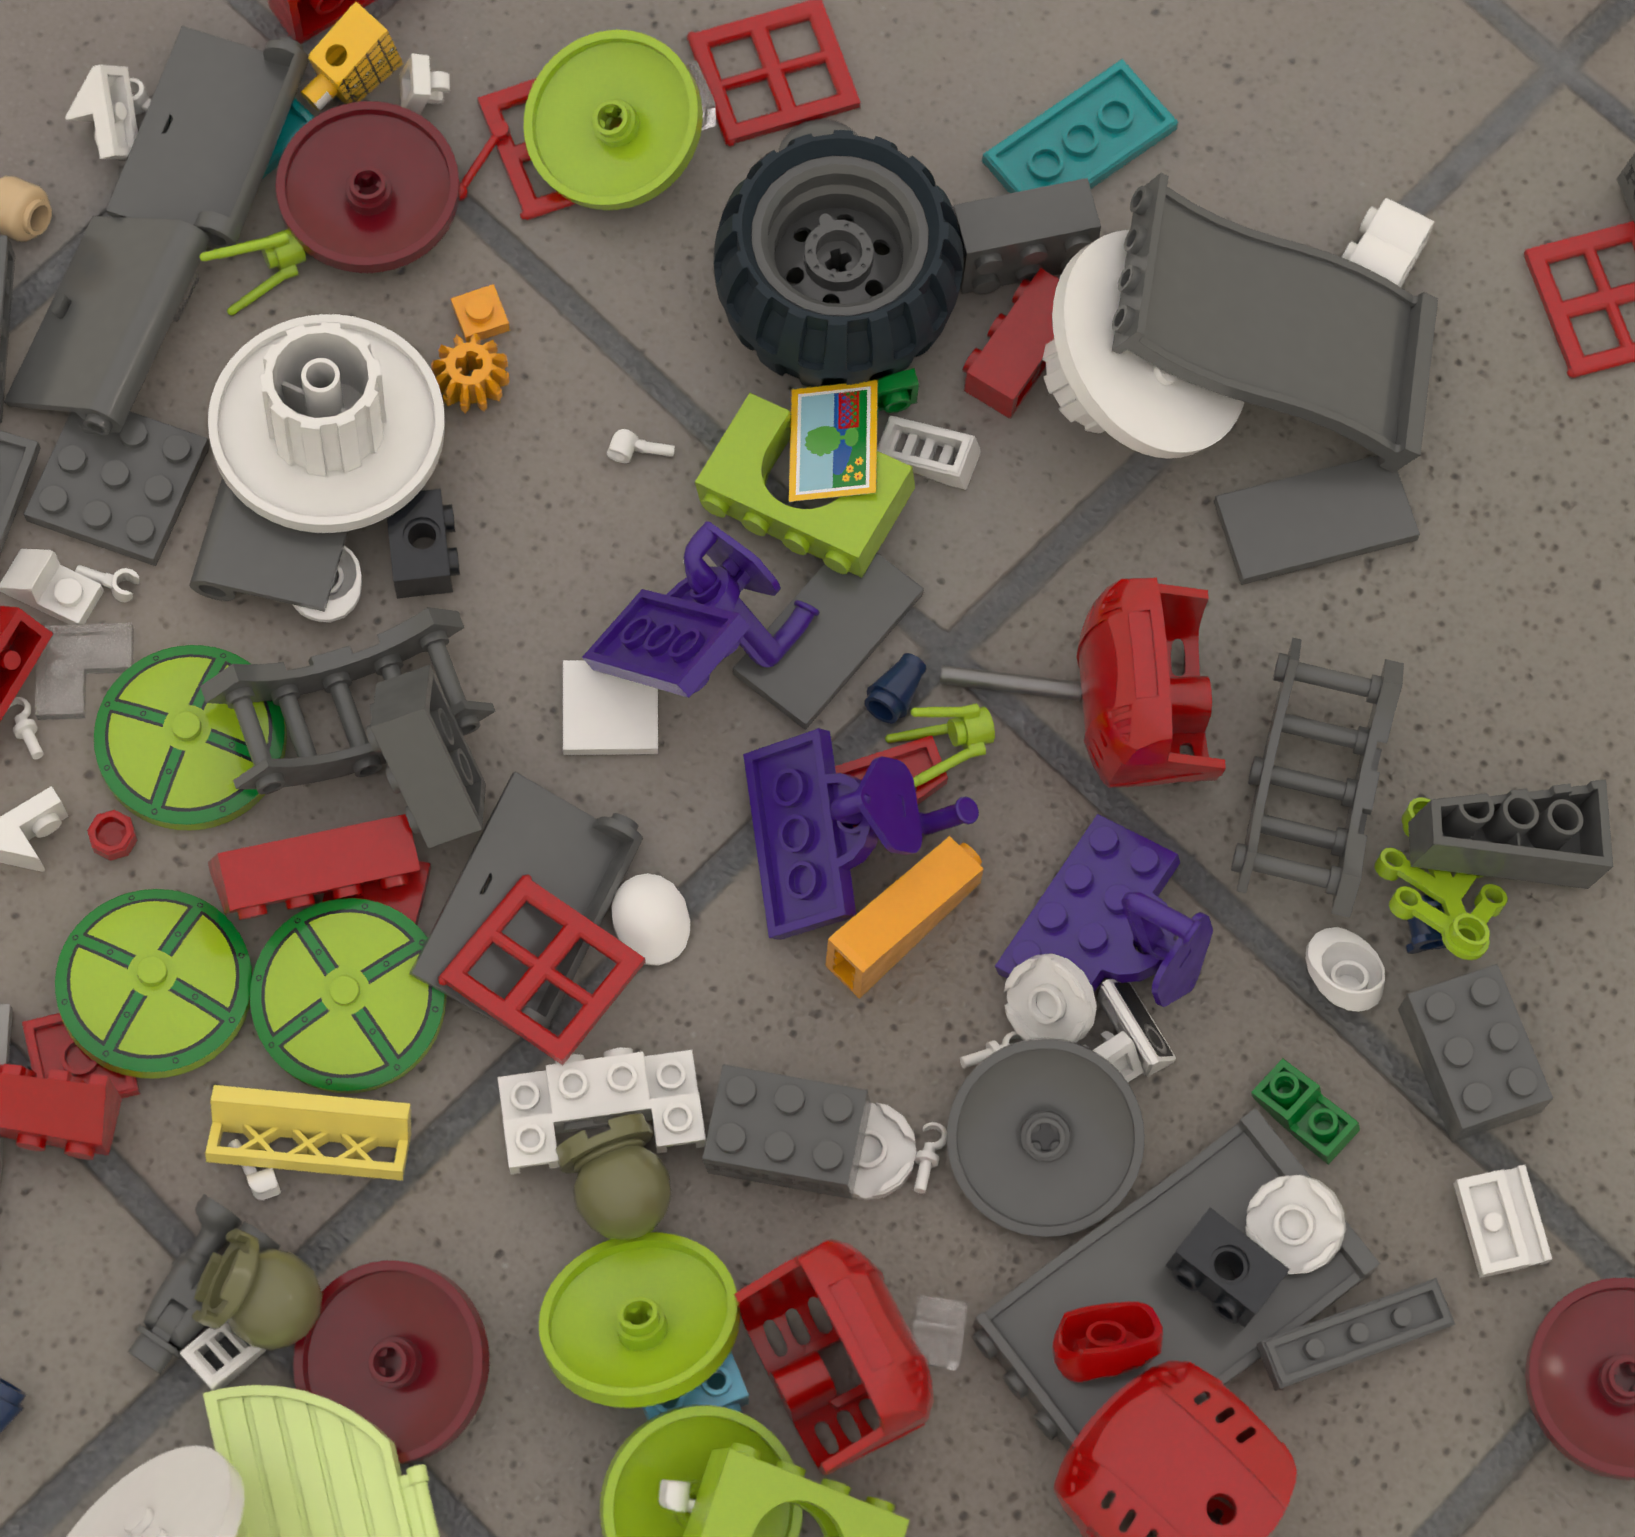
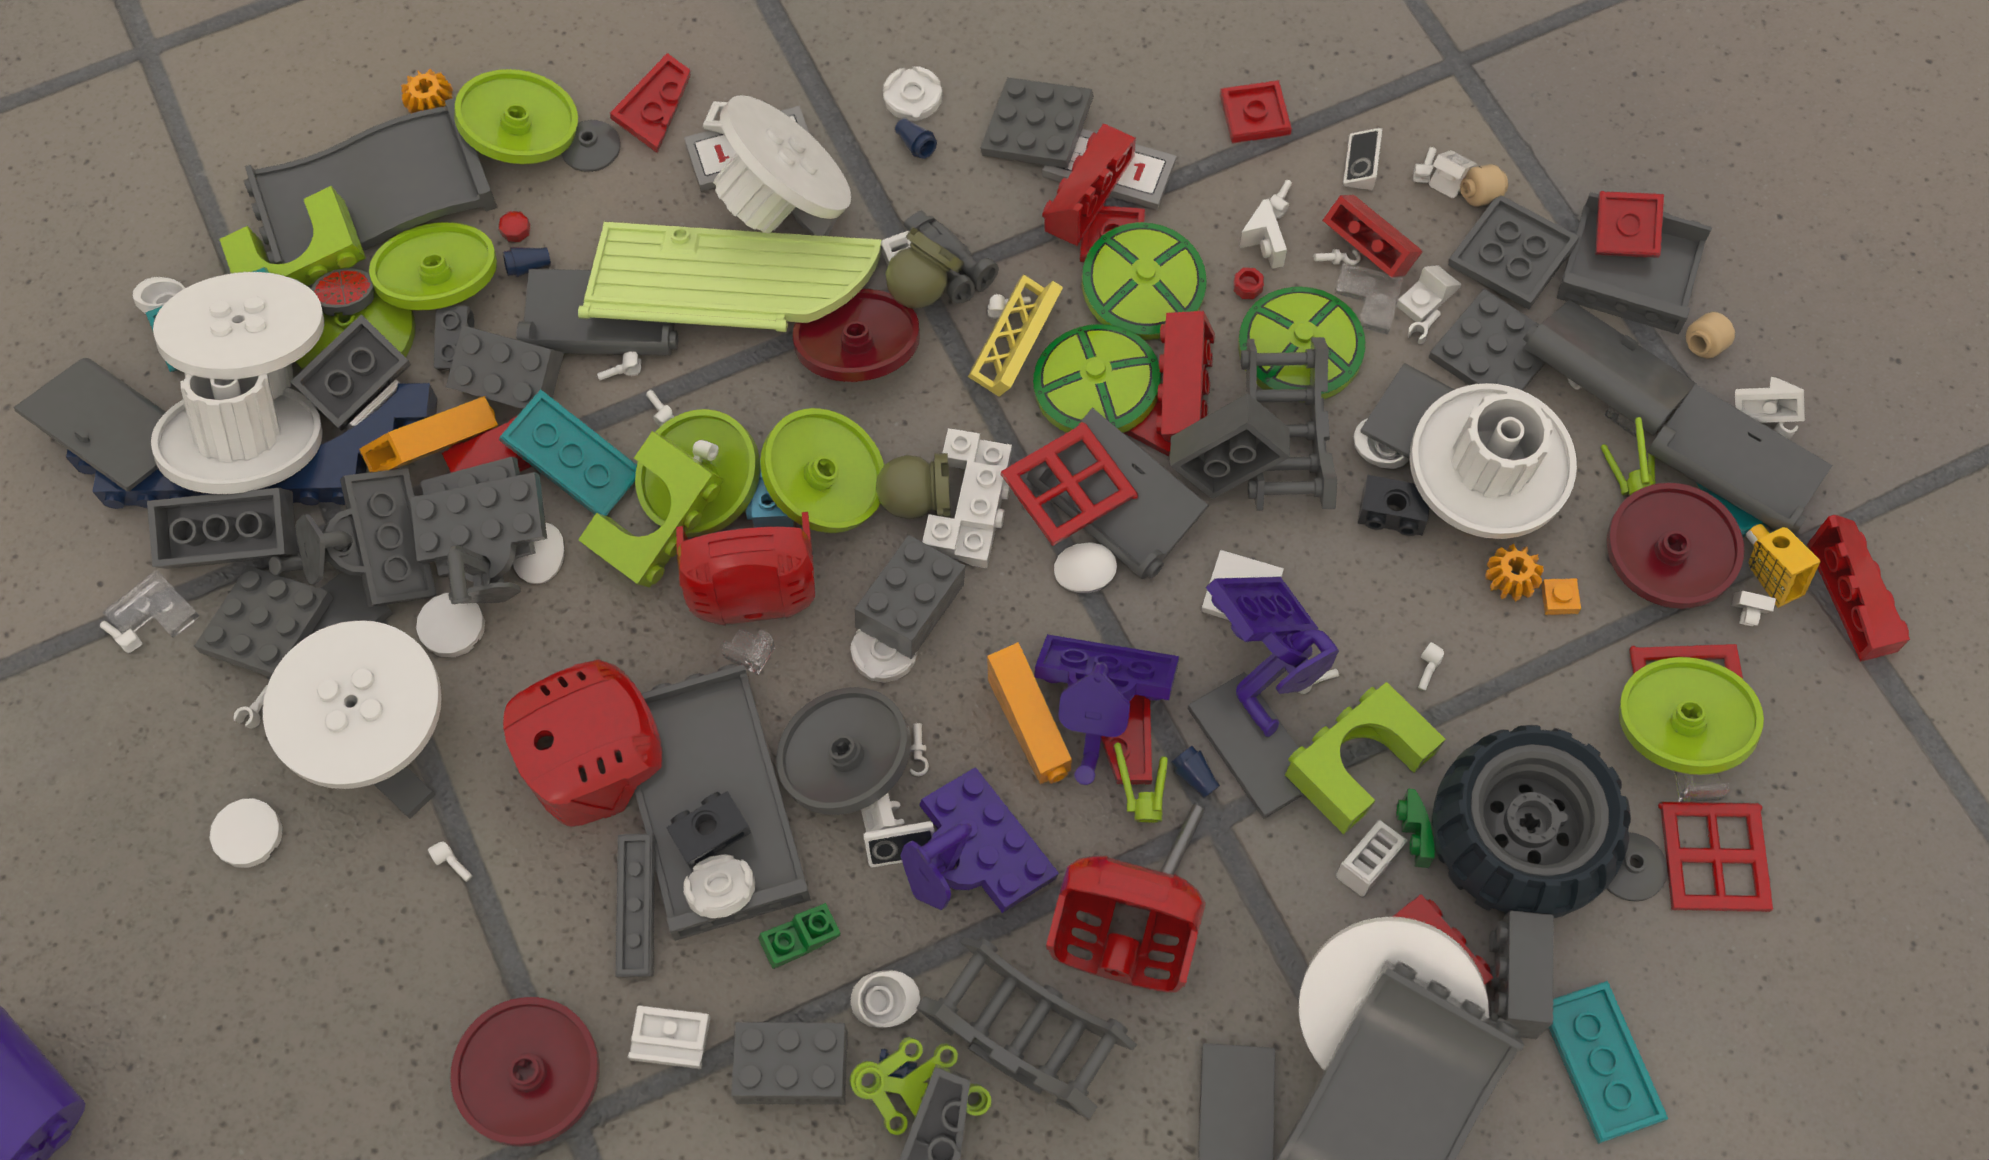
camera: 115 degrees right, 5 degrees down
(500, 131) = (1704, 648): red hinge -> none
(833, 441) = (1389, 780): sticker -> none
(927, 1157) = (862, 681): white hand -> none
(1050, 999) = (932, 784): white tile -> none
(1106, 1340) = (690, 730): red piece -> none

